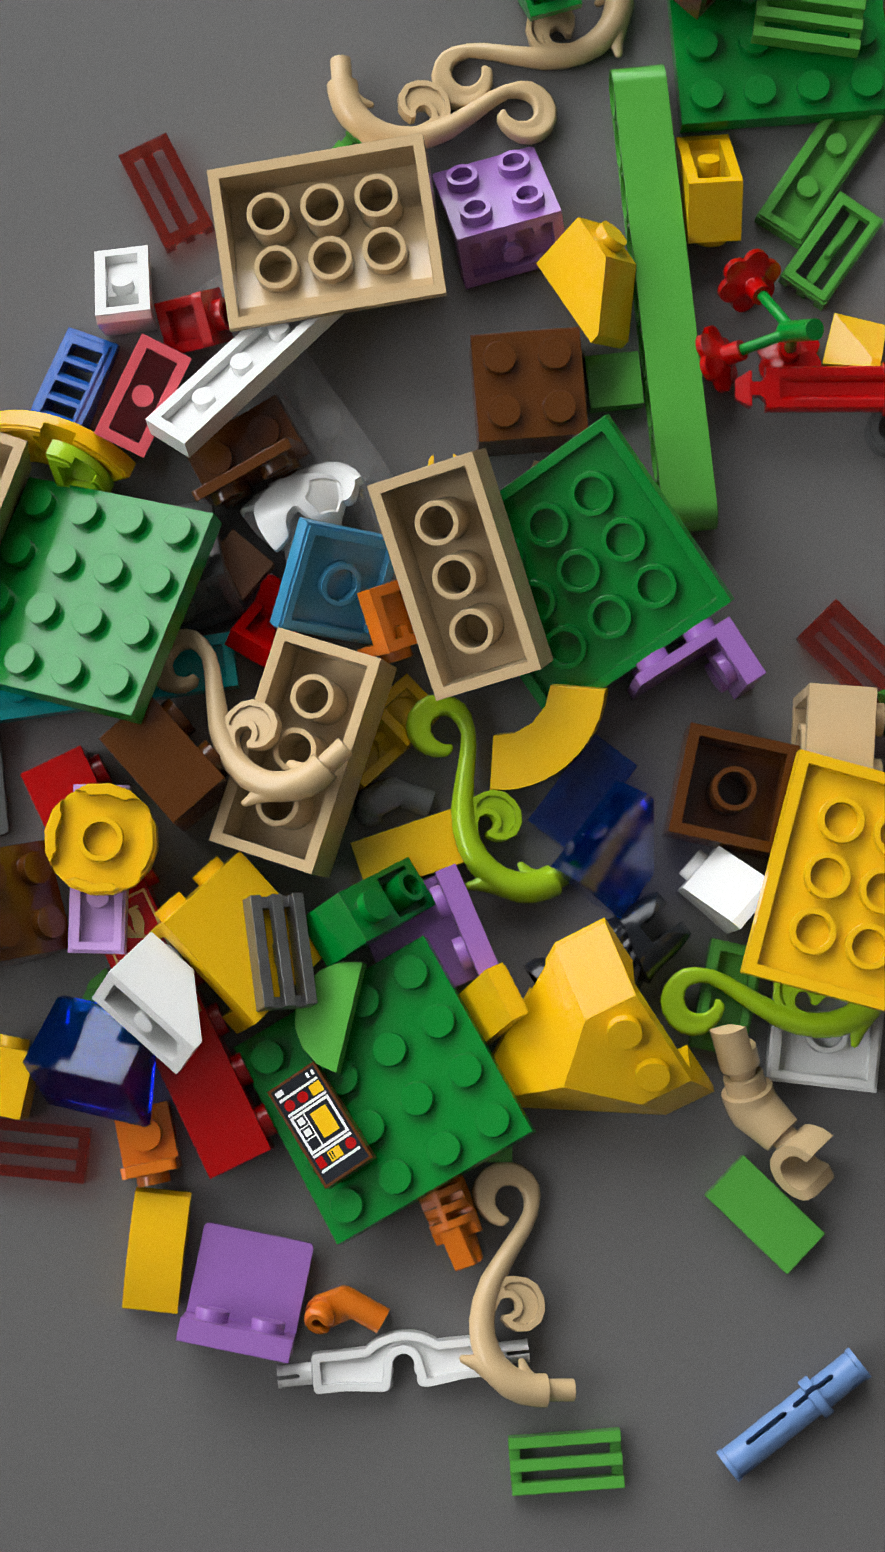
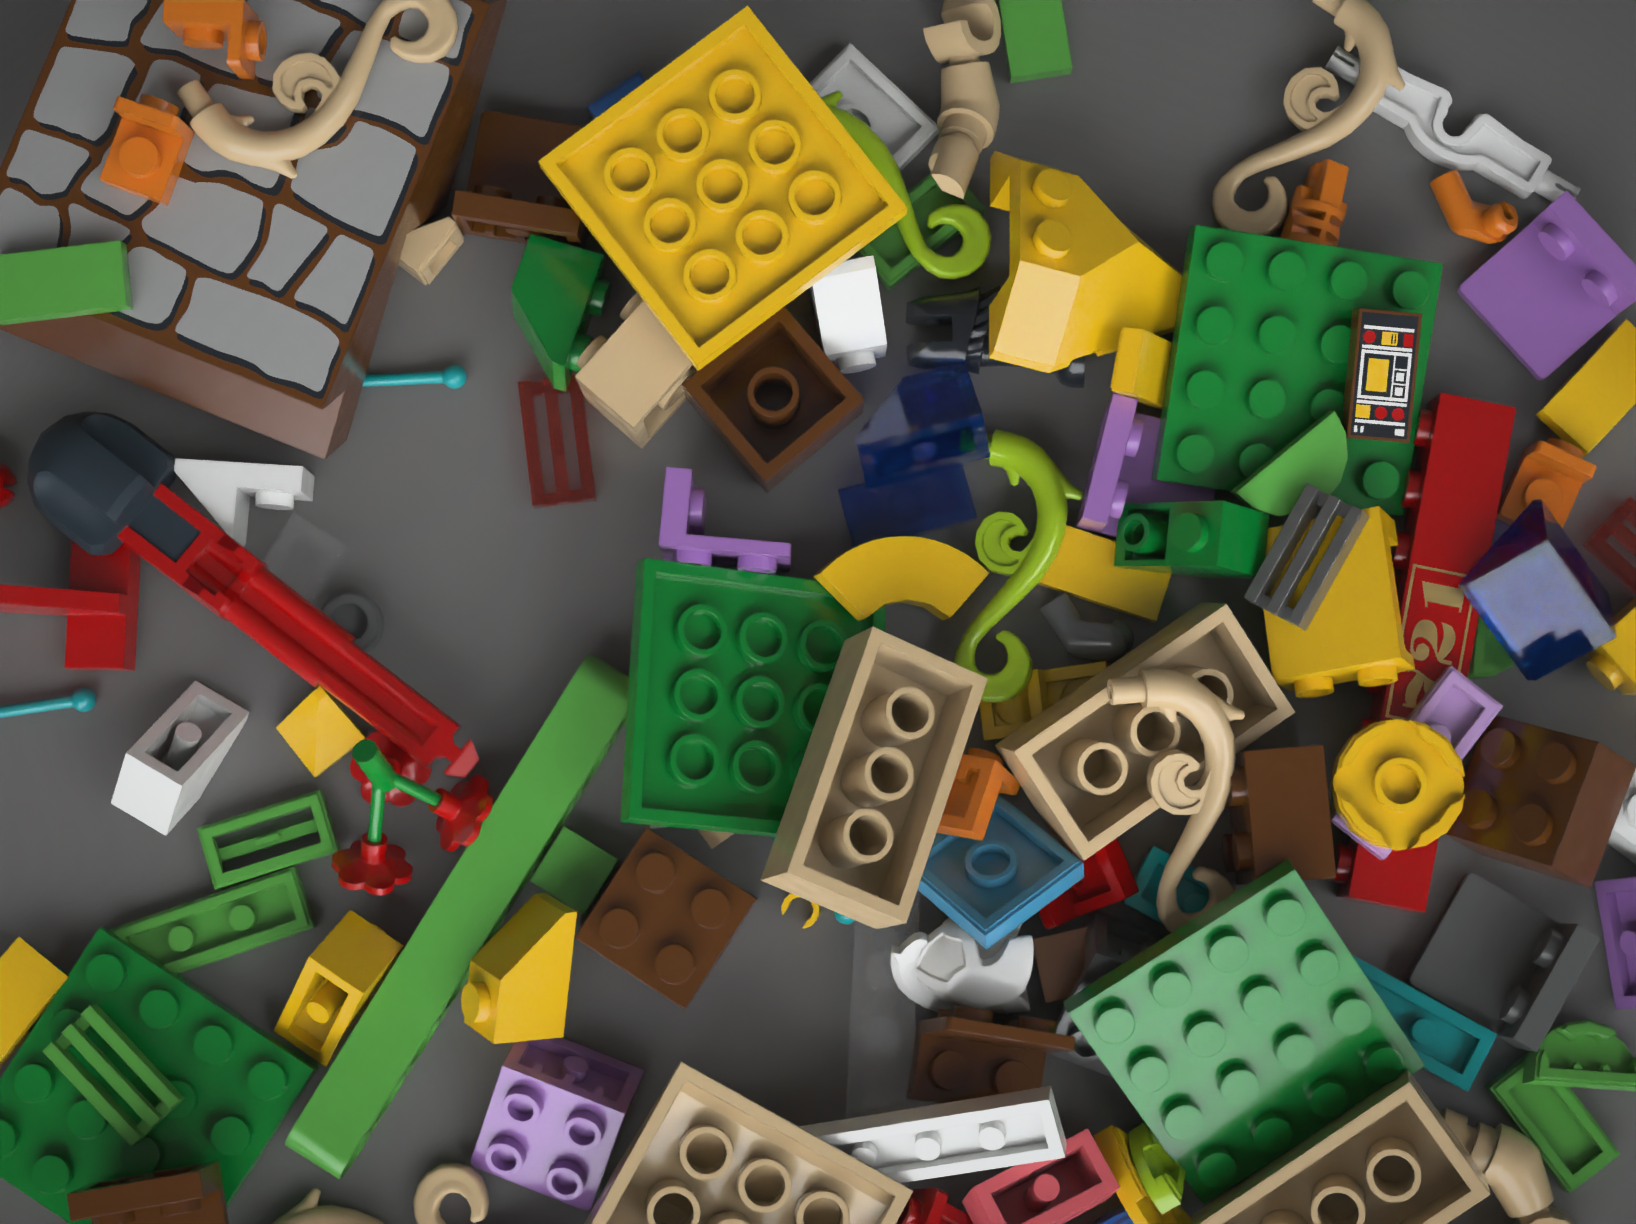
camera: 140 degrees left, 0 degrees up
(155, 1000) = (1456, 594): white slope -> none

